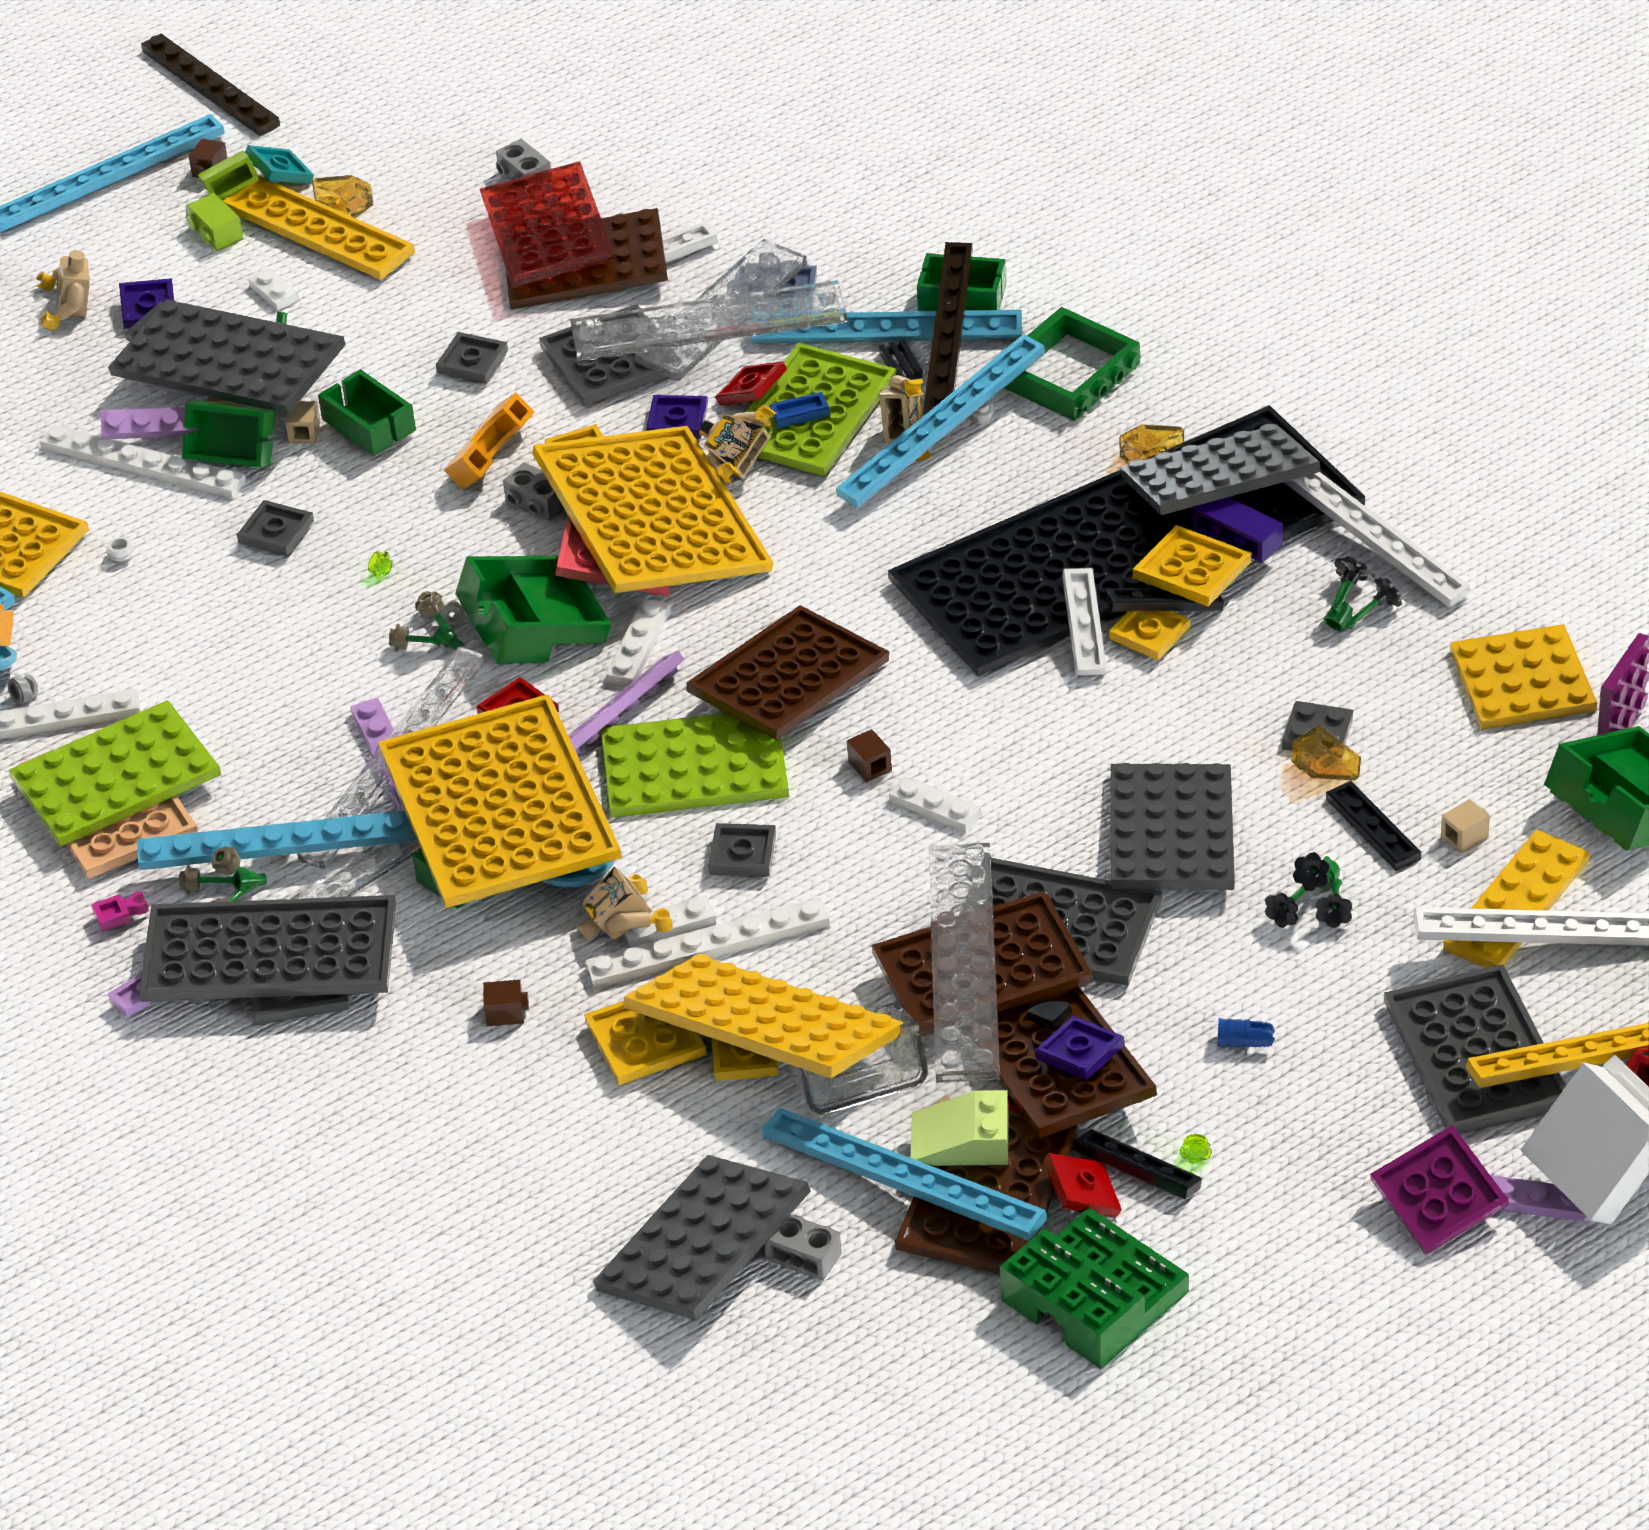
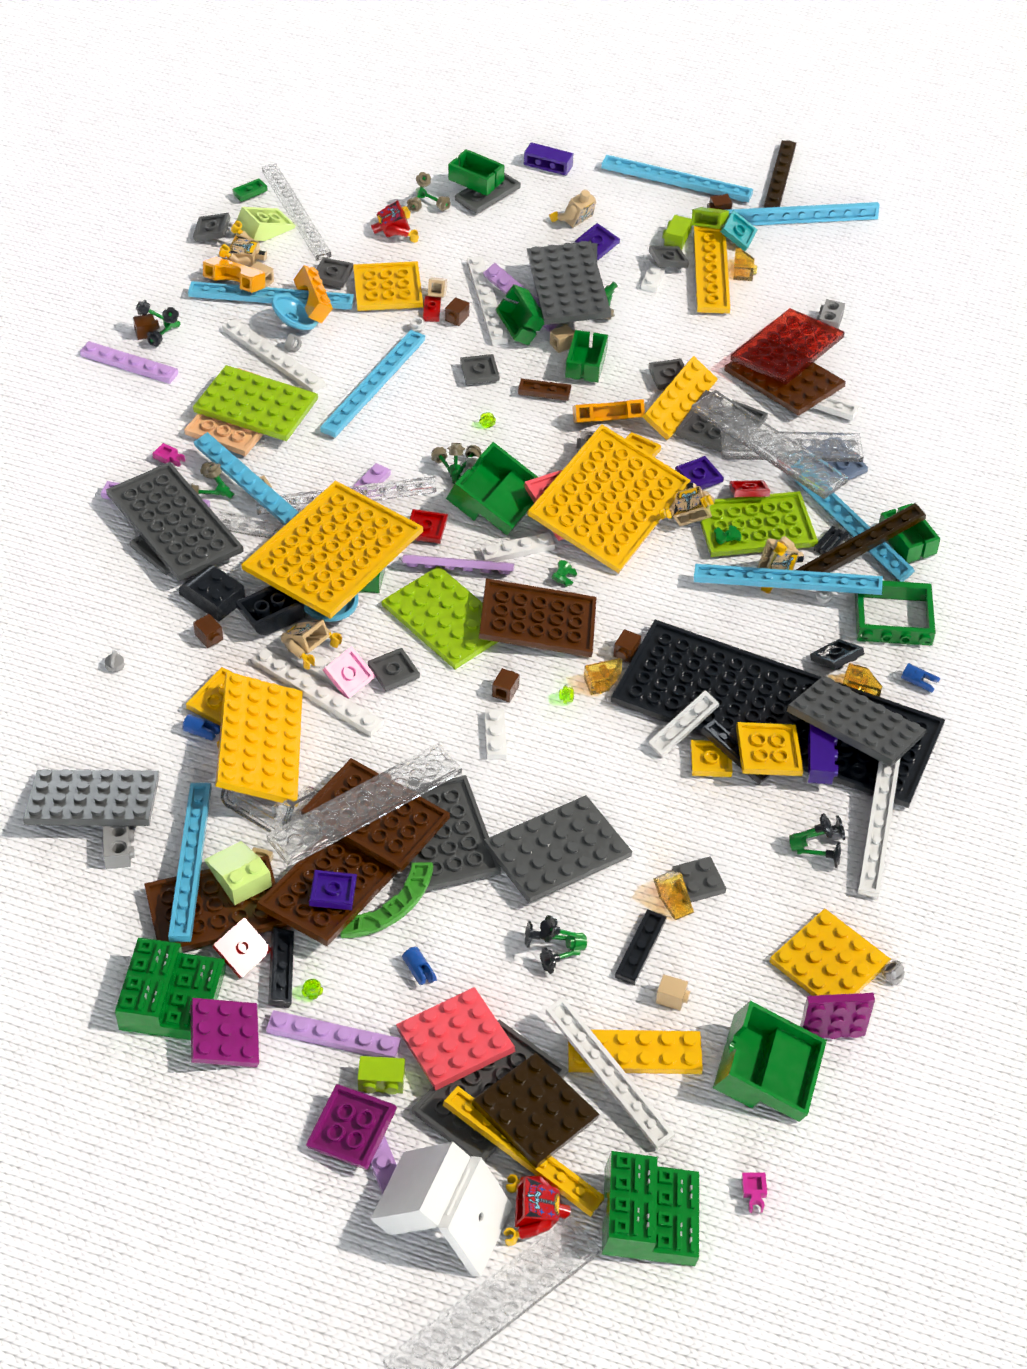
camera: 50 degrees right, 5 degrees up
(75, 493) = (437, 287): none -> tan brick
(103, 521) = (432, 309): none -> red plate
(140, 498) = (457, 311): none -> reddish brown brick
(192, 643) = (372, 384): none -> medium azure plate
(255, 251) = (668, 256): none -> dark grey plate
(315, 87) = (810, 213): none -> medium azure plate
(379, 484) = (544, 389): none -> reddish brown plate
(434, 968) = (213, 592): none -> black brick
(464, 1126) = (114, 662): none -> light grey tile
(530, 366) = (678, 397): none -> yellow plate
(531, 918) = (270, 610): none -> black brick
(671, 1081) = (200, 727): none -> blue hinge
(716, 890) = (349, 672): none -> plate
(724, 617) = (563, 570): none -> green piece
(800, 409) = (745, 518): blue tile -> none
(815, 437) = (729, 535): none -> green piece
(906, 616) = (627, 645): none -> reddish brown brick
(933, 708) = (566, 694): none -> clear neon green plate
(935, 662) = (602, 675): none -> clear yellow slope
(1049, 1013) = (358, 865): black tile -> none
(1092, 441) = (837, 654): none -> black plate
(1135, 1000) = (396, 907): none -> bright green tile
(1183, 396) = (916, 676): none -> blue hinge
(1204, 1253) = (224, 1032): none -> magenta plate
(1279, 1160) = (333, 1035): none -> lavender plate
(1379, 1135) = (381, 1075): none -> lime brick
(1381, 1043) = (455, 1038): none -> coral plate
(1545, 1010) = (535, 1109): none -> dark brown plate
(1583, 630) = (894, 972): none -> light grey tile

